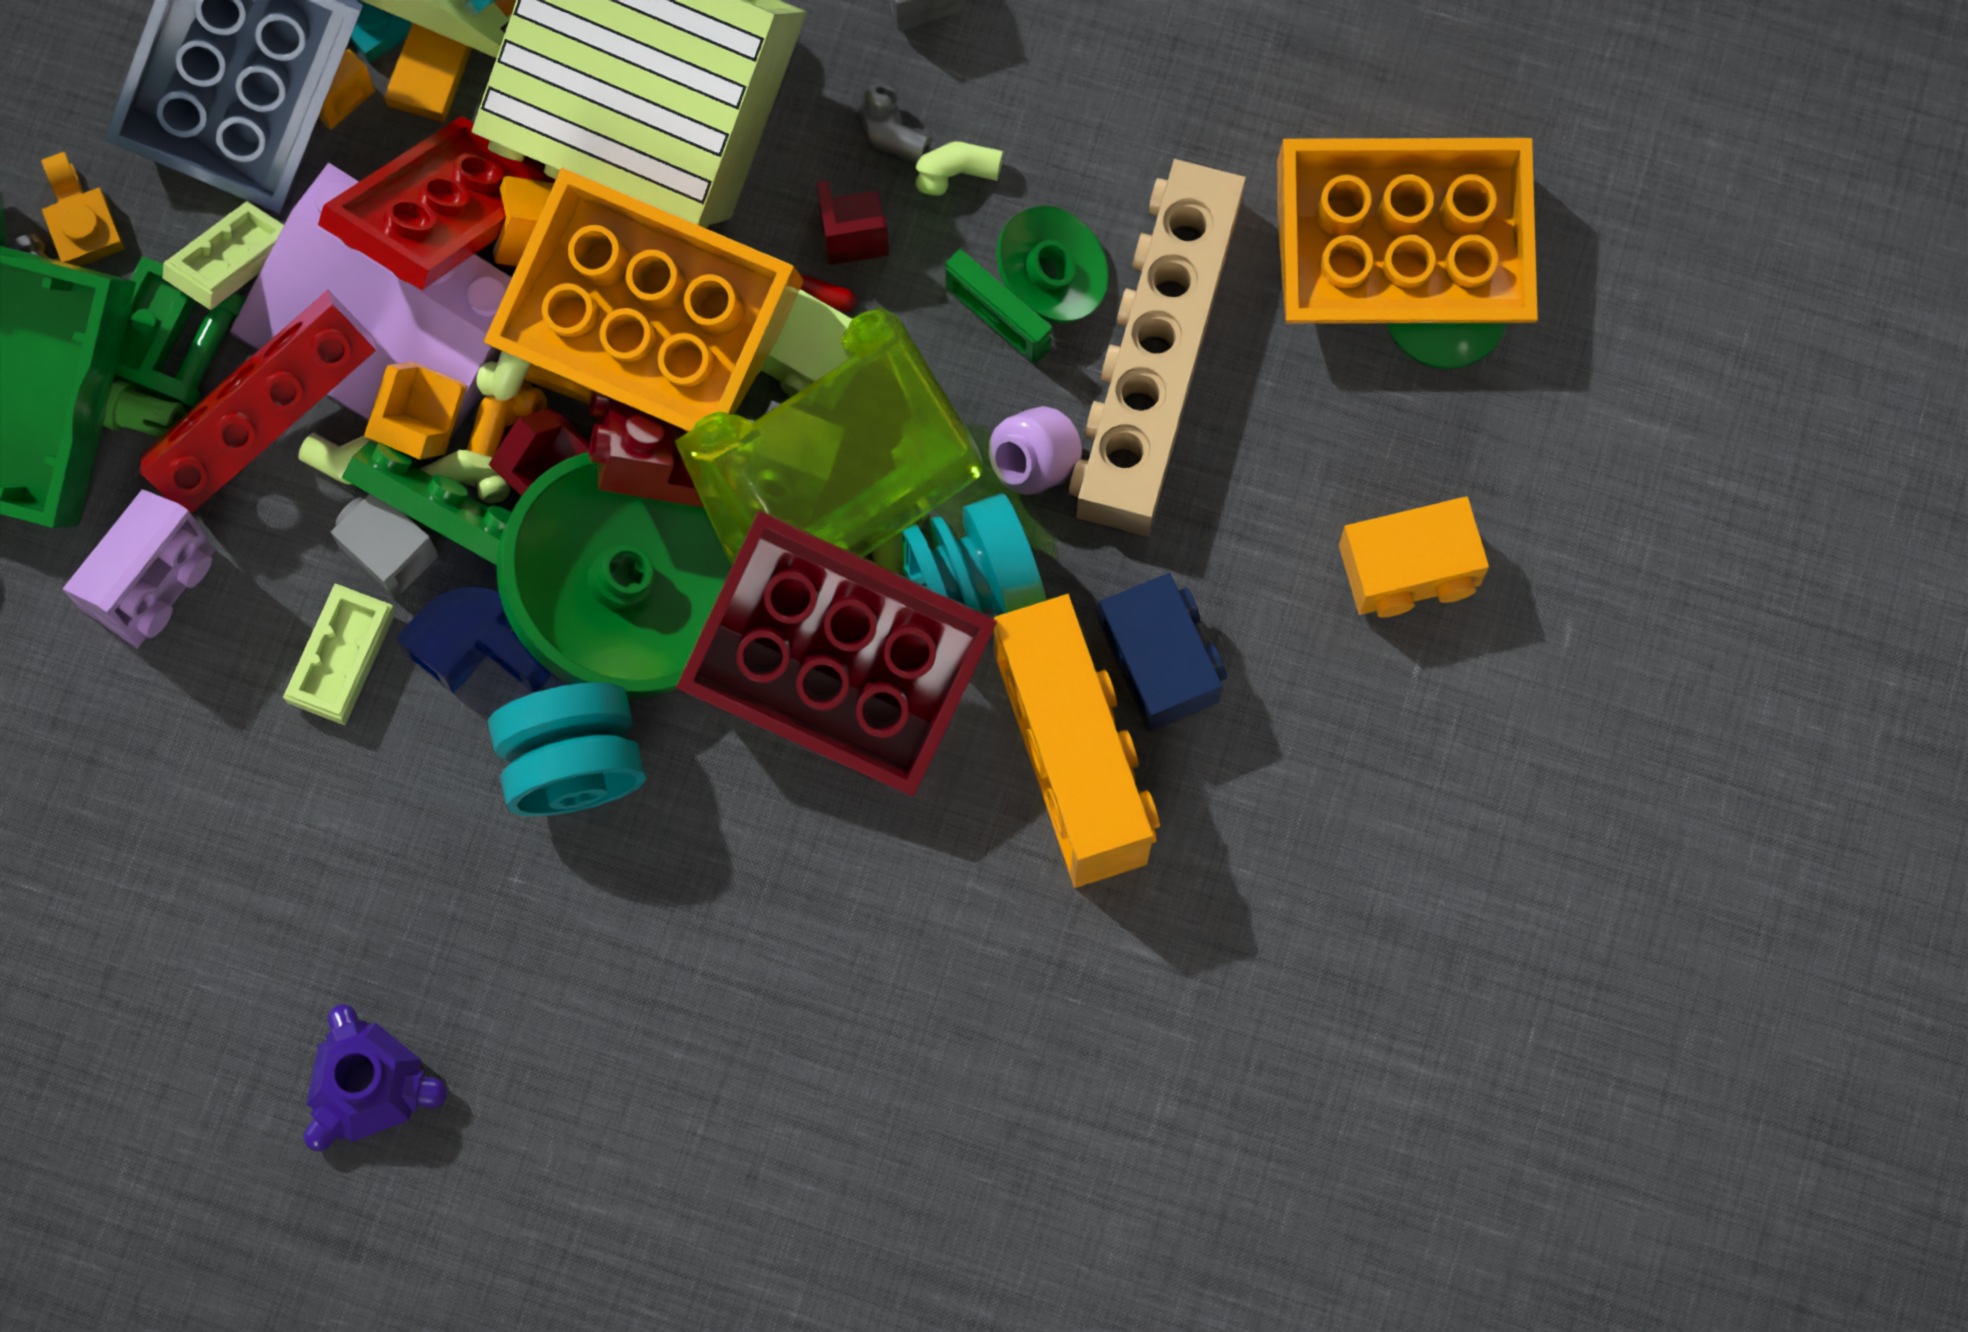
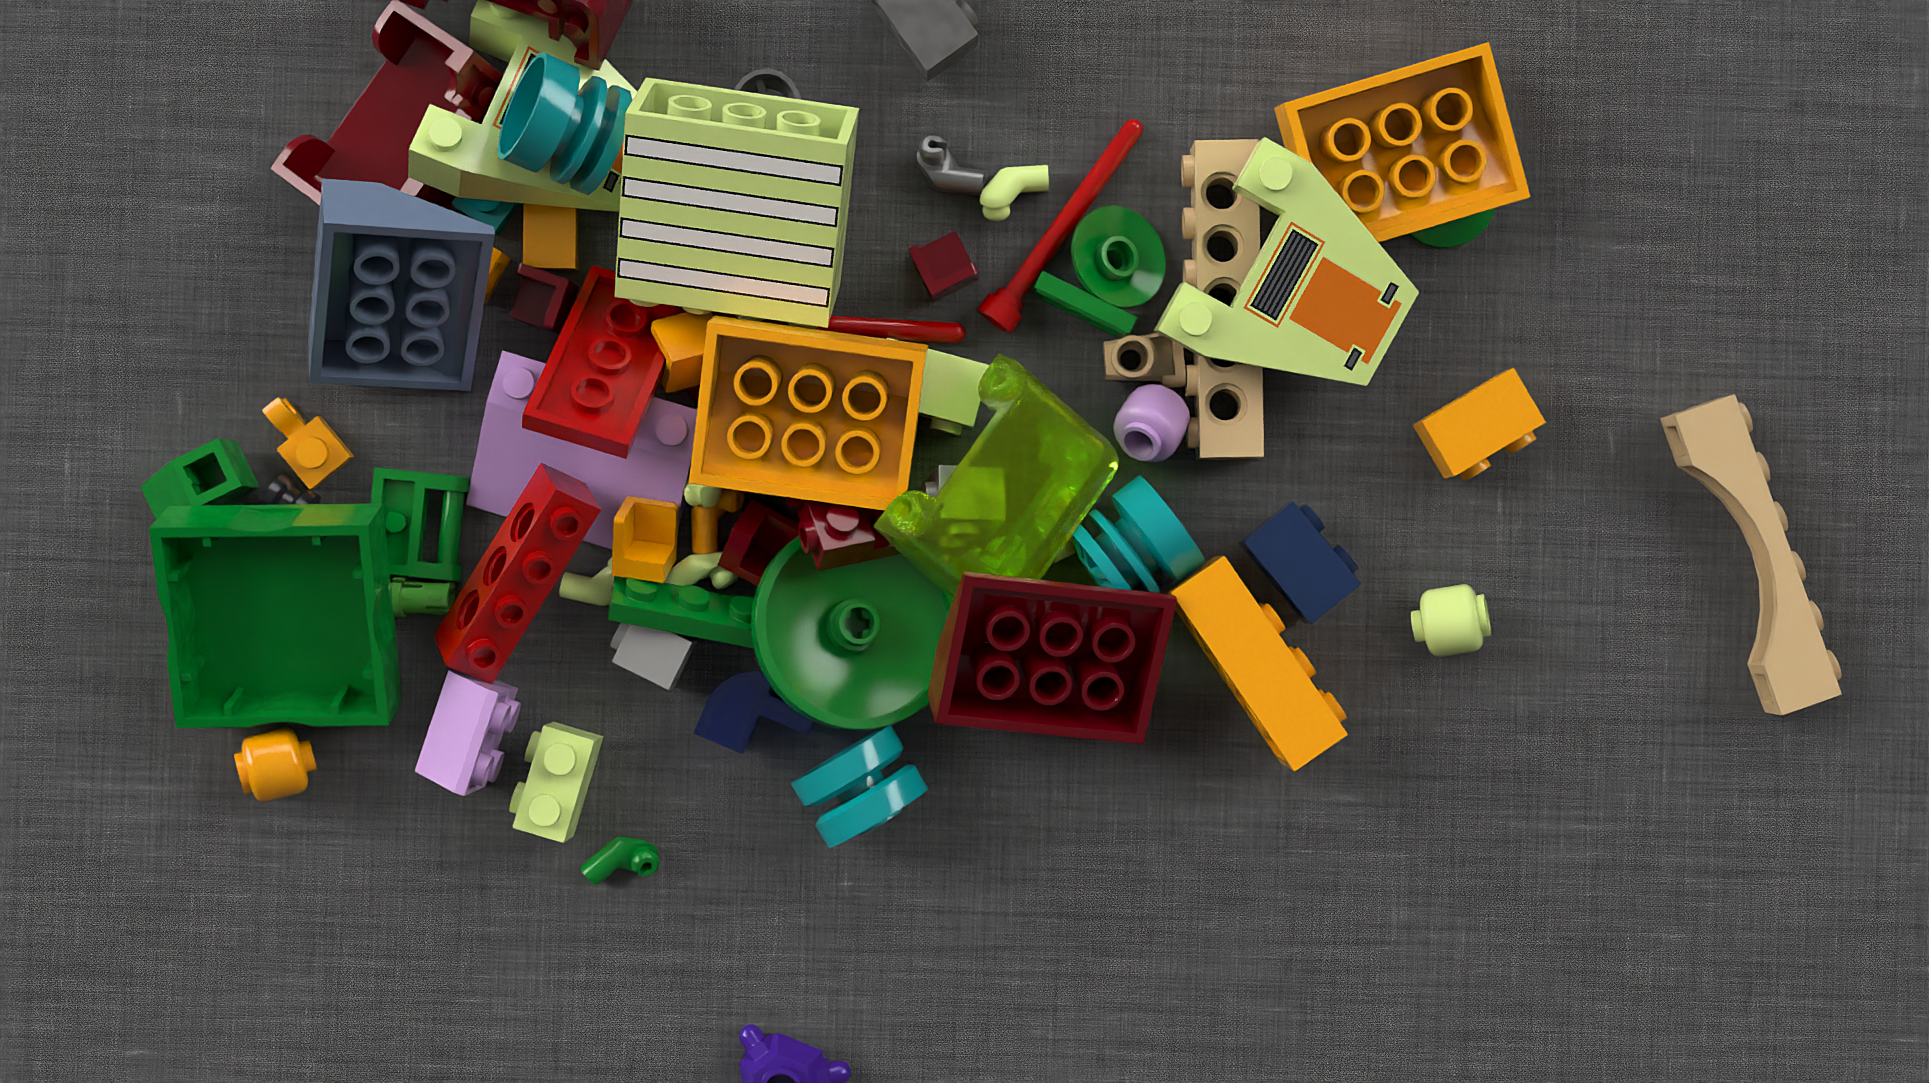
camera: 15 degrees left, 15 degrees up
(220, 653) = (556, 781): none -> yellowish green brick
(224, 256) = (443, 447): yellowish green plate -> none
(267, 765) = (624, 854): none -> green arm
(339, 654) = (649, 749): yellowish green plate -> none
(394, 128) = (543, 299): none -> dark red panel
(906, 285) = (1005, 304): none -> red piece
(1066, 383) = (1159, 360): none -> tan plate
(1254, 345) = (1317, 294): none -> yellowish green wedge
(1321, 771) = (1451, 620): none -> yellowish green head
(1685, 669) = (1789, 652): none -> tan arch

